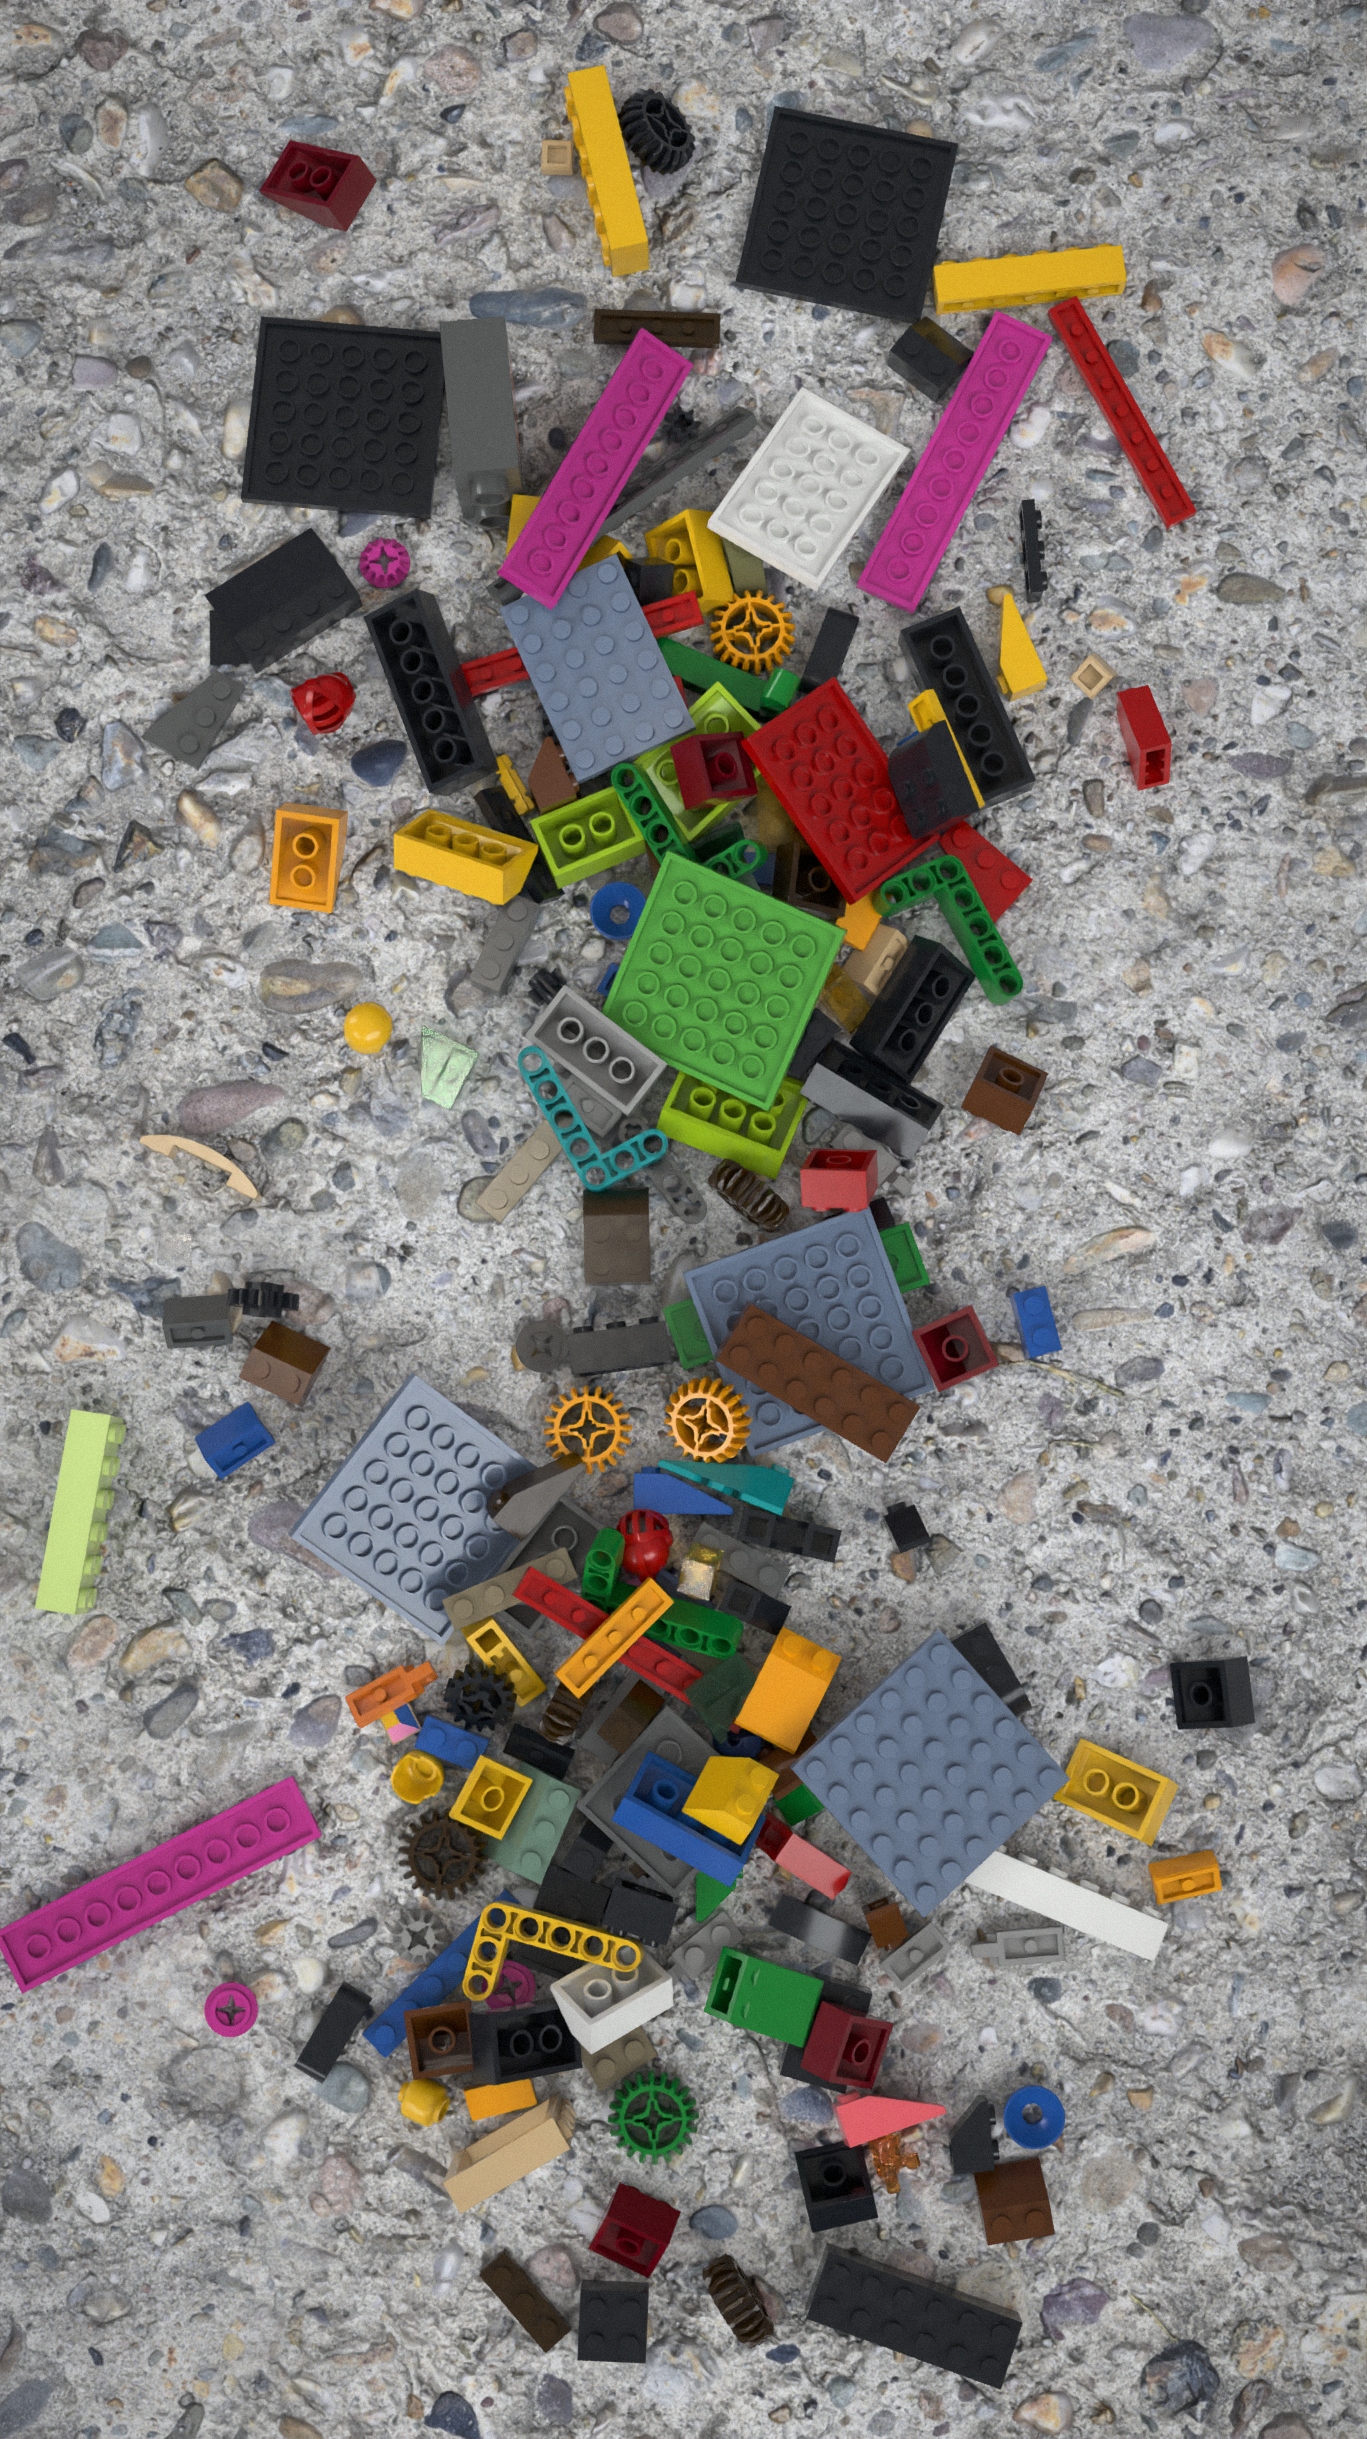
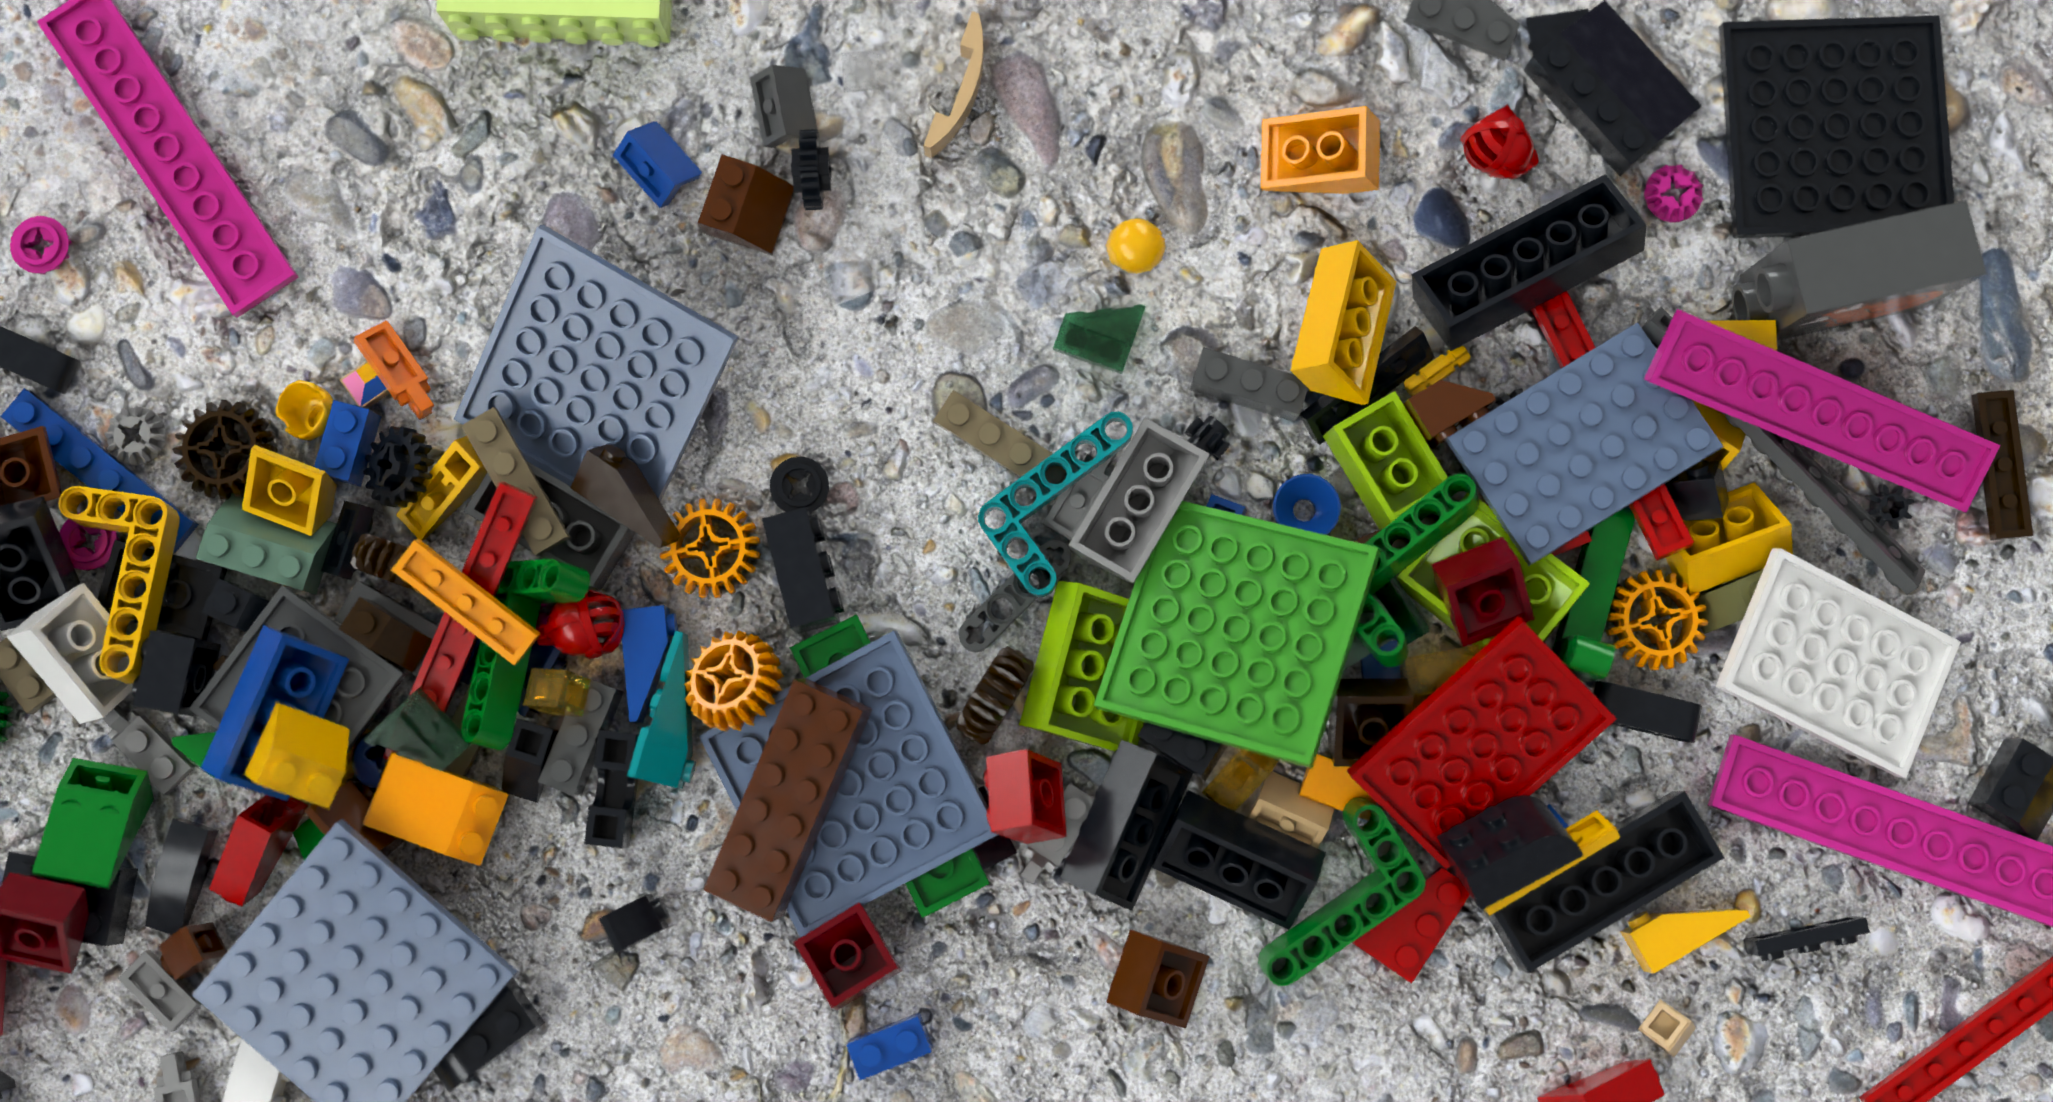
camera: 80 degrees right, 0 degrees up
(616, 1237) = (932, 553): dark brown brick -> none

